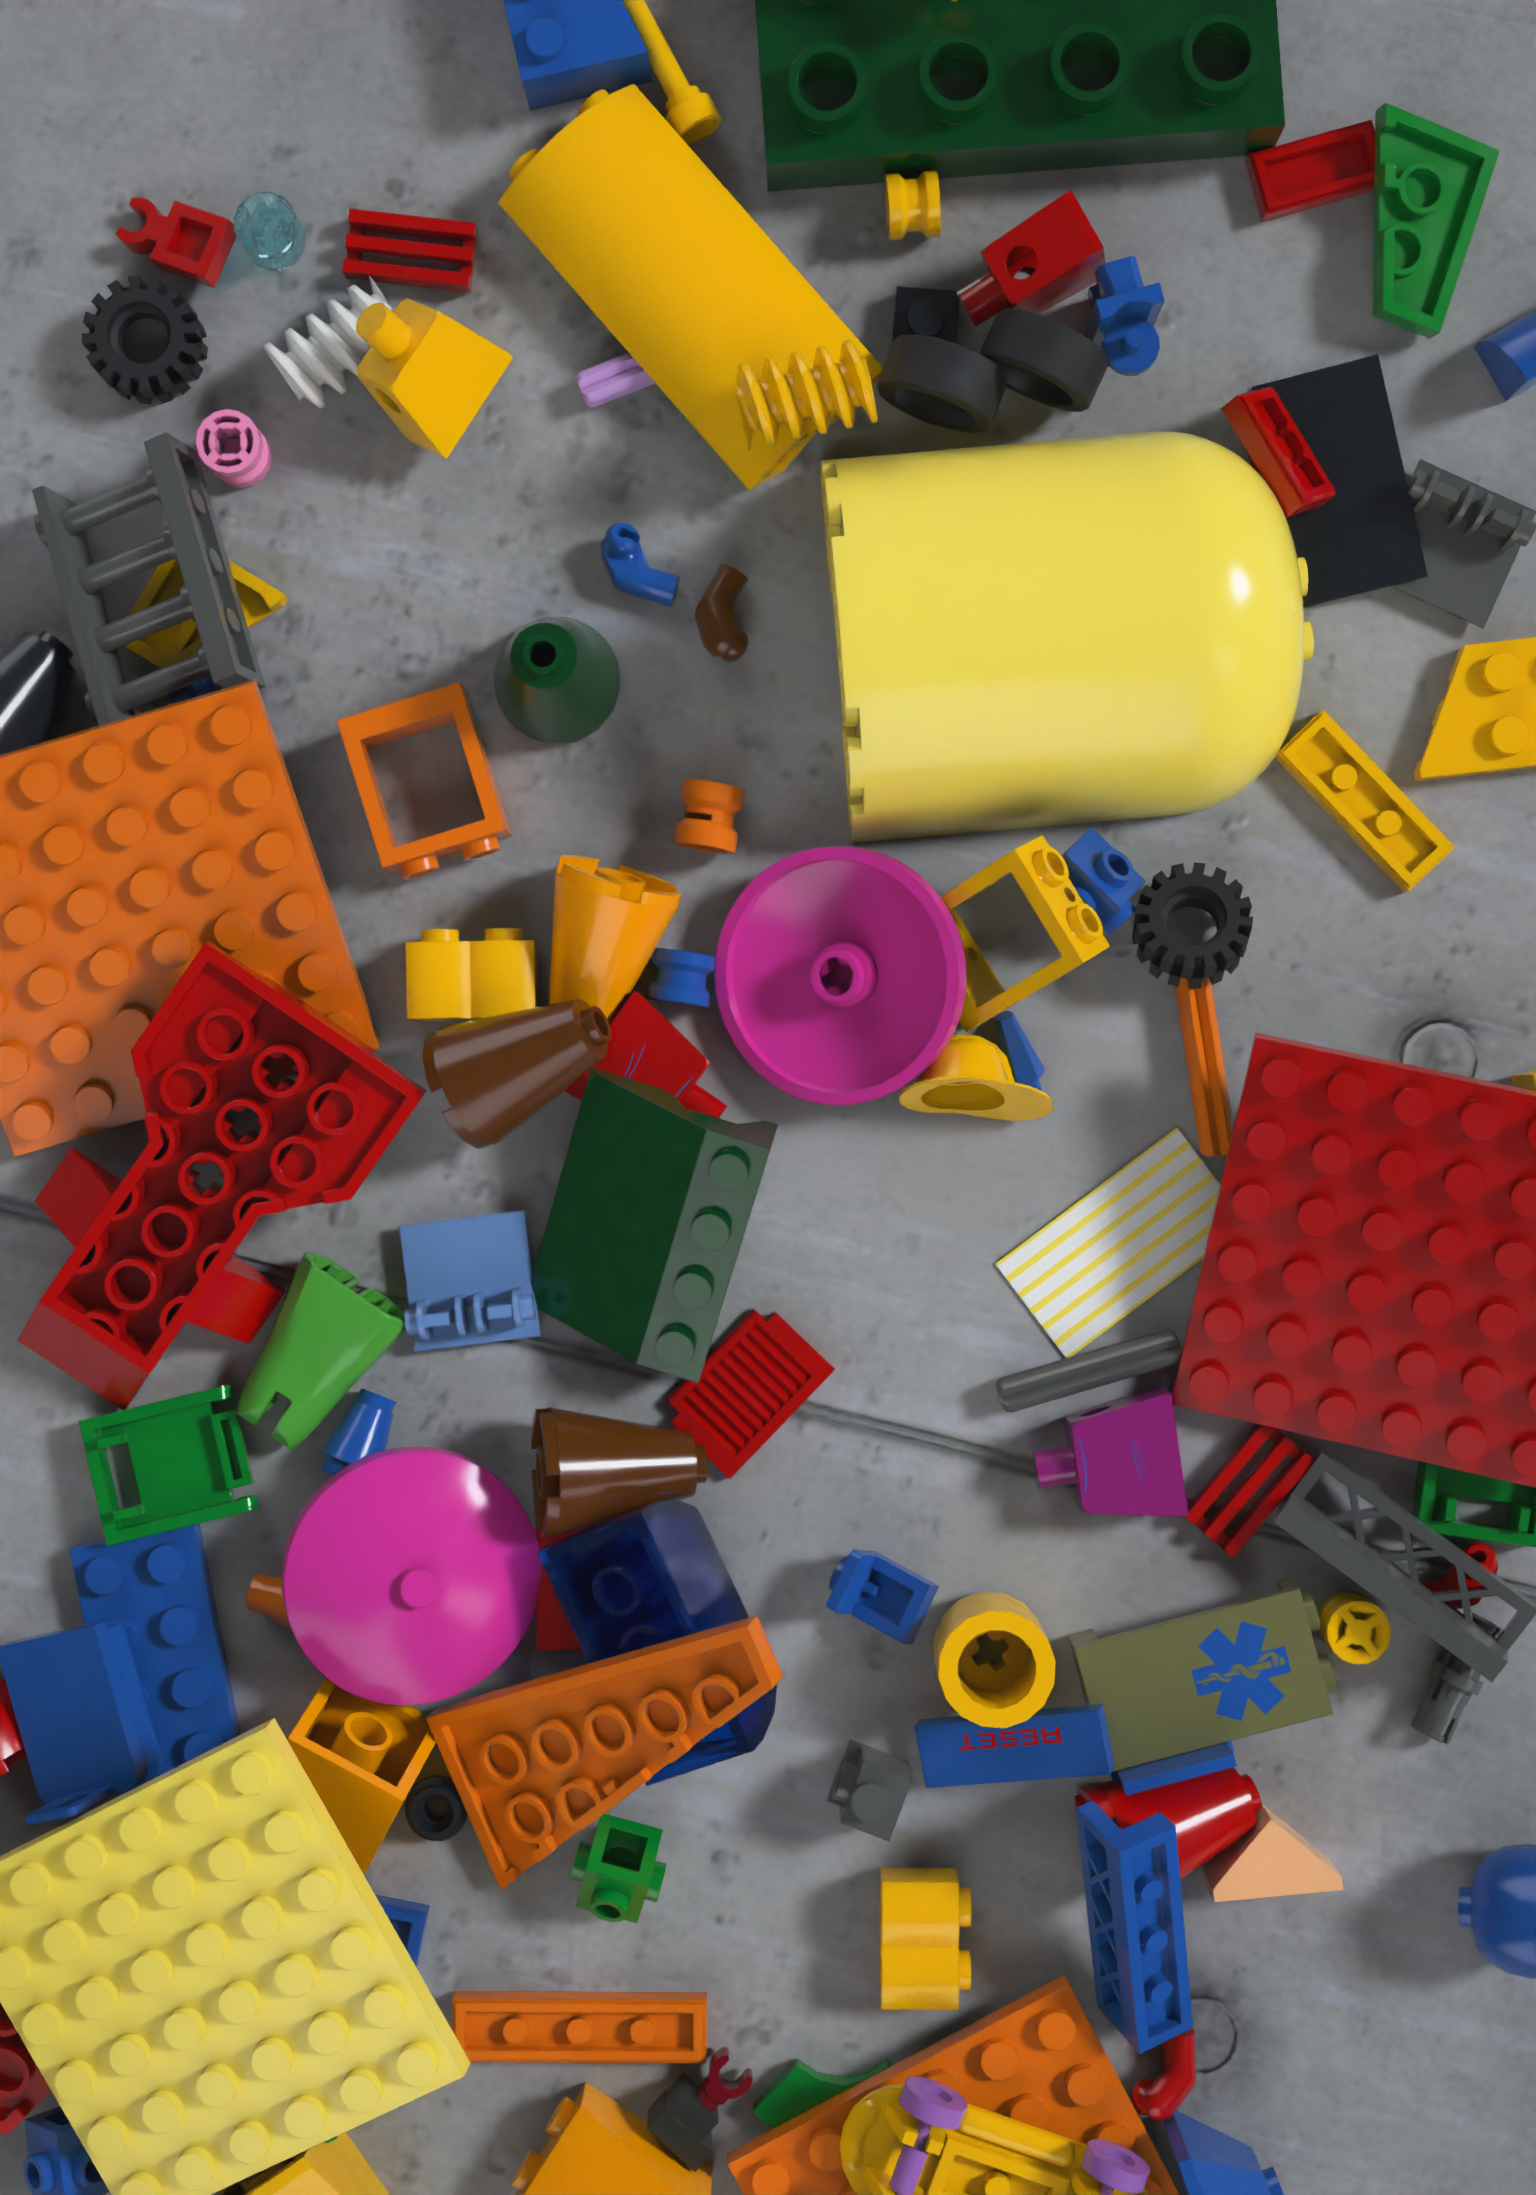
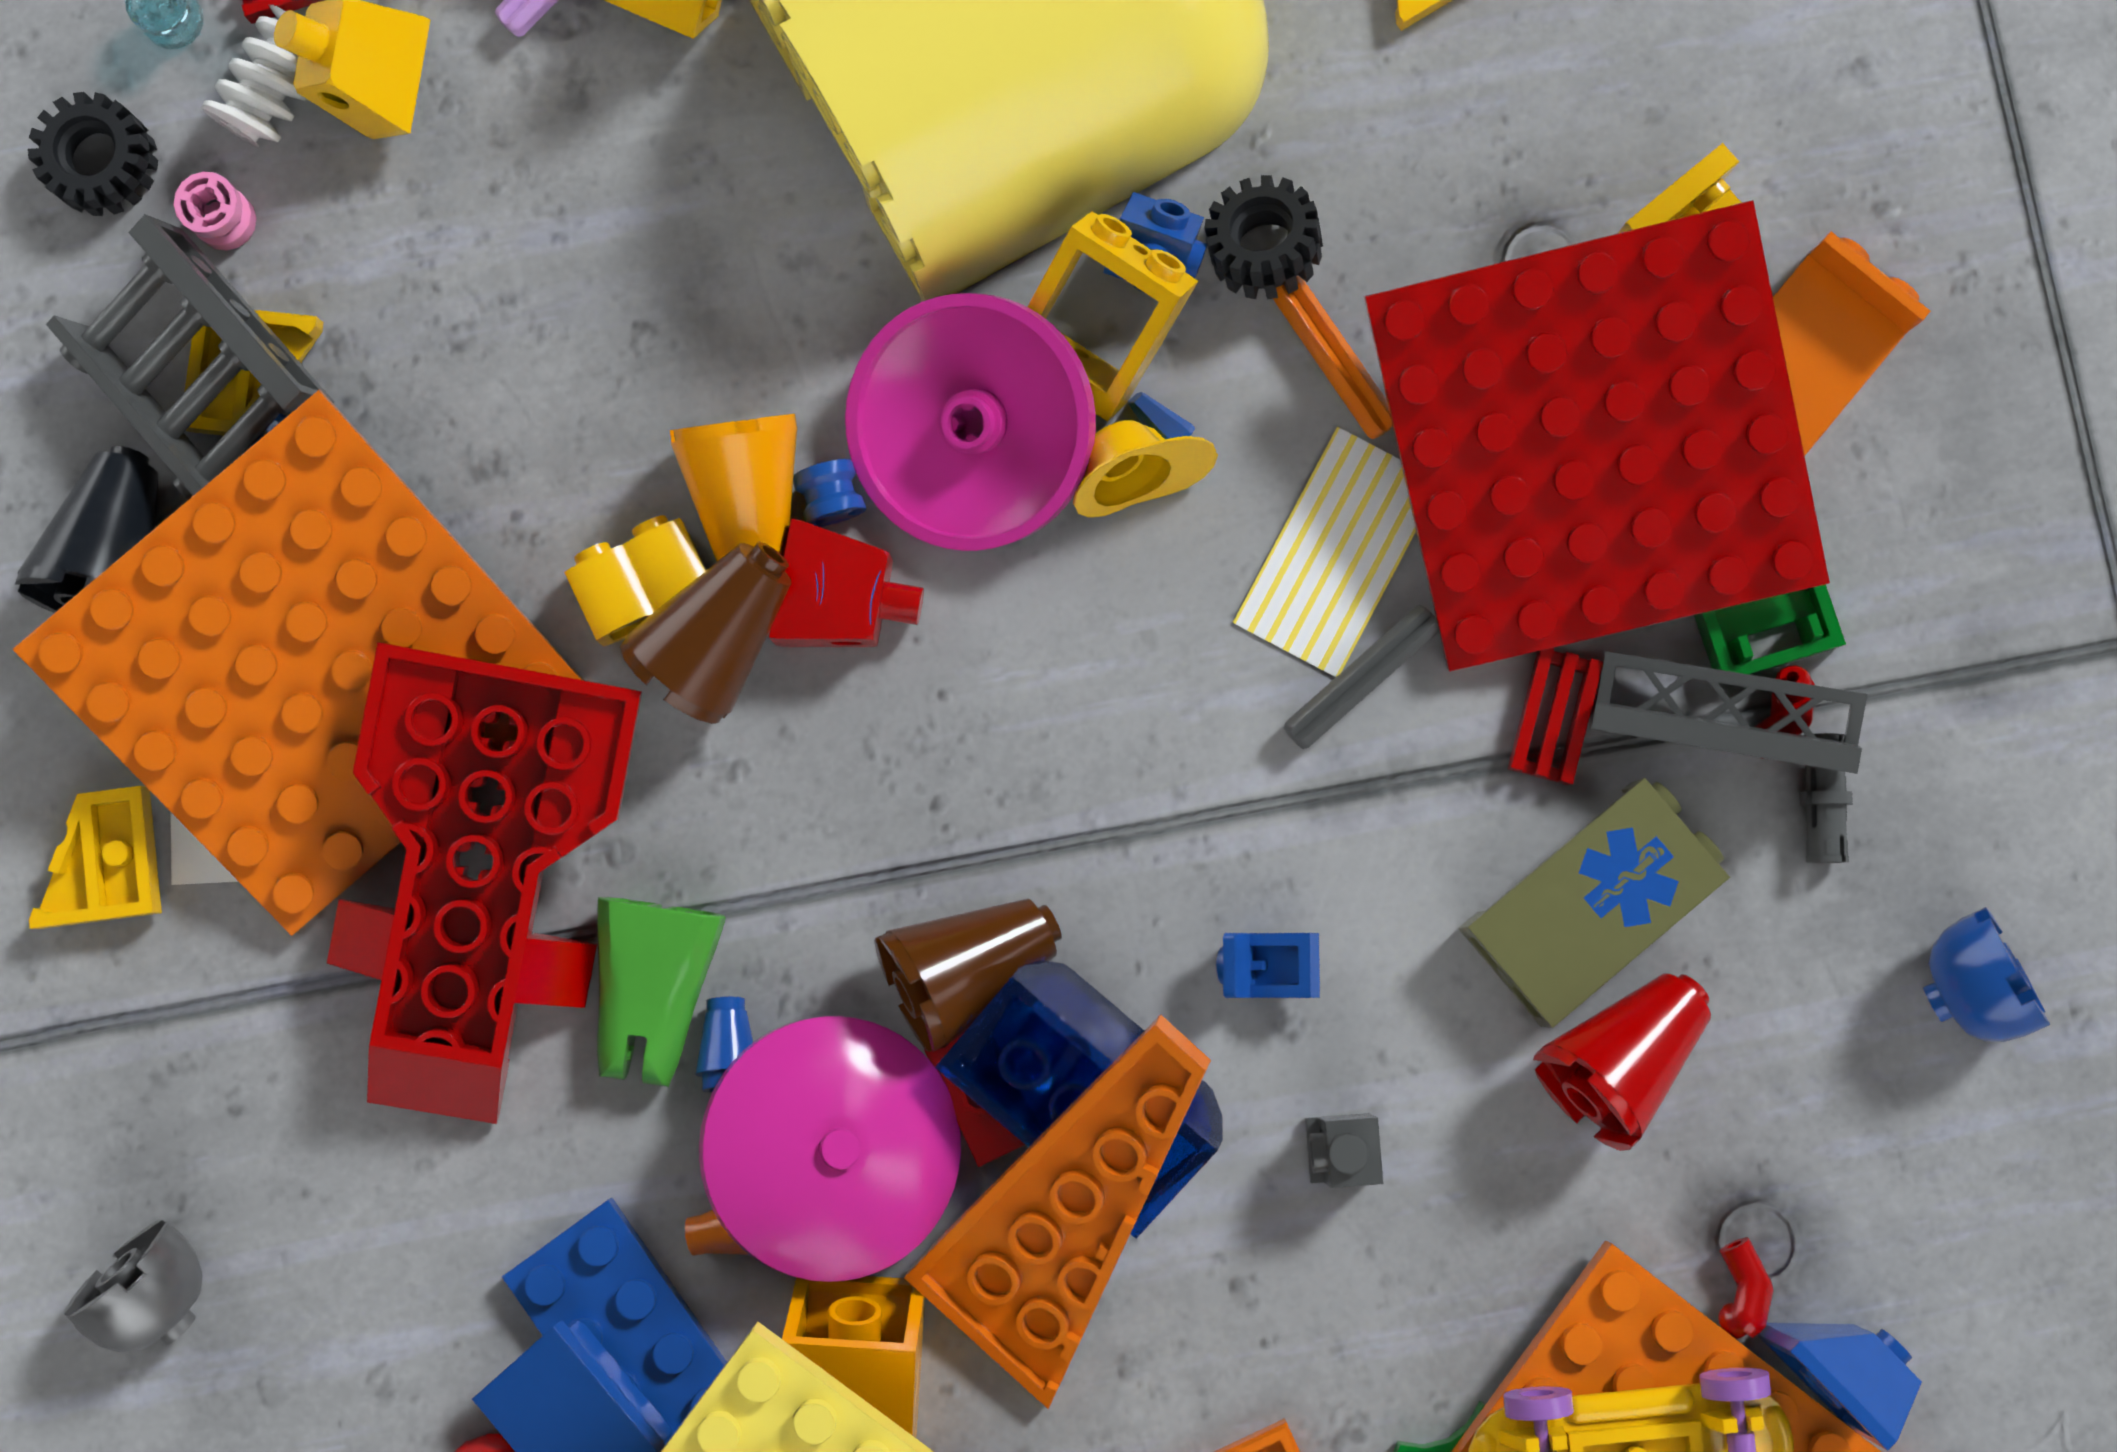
camera: 25 degrees left, 5 degrees down
(181, 1462) = (571, 1147): green container -> none
(184, 243) = (92, 55): red plate -> none
(406, 719) = (475, 380): orange window -> none
(423, 1821) = (947, 1380): black plate -> none
(469, 1281) = (761, 857): medium blue hinge -> none
(557, 680) = (595, 281): dark green cone -> none
(618, 1869) = (1147, 1332): green brick -> none
(630, 569) = (618, 158): blue arm -> none
(648, 1223) = (899, 720): dark green piece -> none
(714, 802) = (788, 339): orange wheel -> none
(715, 615) = (714, 165): reddish brown arm -> none
(748, 1389) = (1061, 838): red window -> none
(921, 1939) = (1457, 1268): yellow brick -> none
(999, 1692) = (1431, 963): yellow piece -> none
(1046, 1746) = (1457, 1045): blue tile -> none
(1120, 1458) = (1427, 740): magenta torso -> none
(1136, 1925) = (1645, 1152): blue fence -> none
(1175, 1768) = (1611, 992): blue piece -> none
(1269, 1863) = (1738, 1045): light nougat slope -> none
(1363, 1638) = (1722, 790): yellow wheel -> none
(1364, 801) = (1364, 66): yellow tile -> none

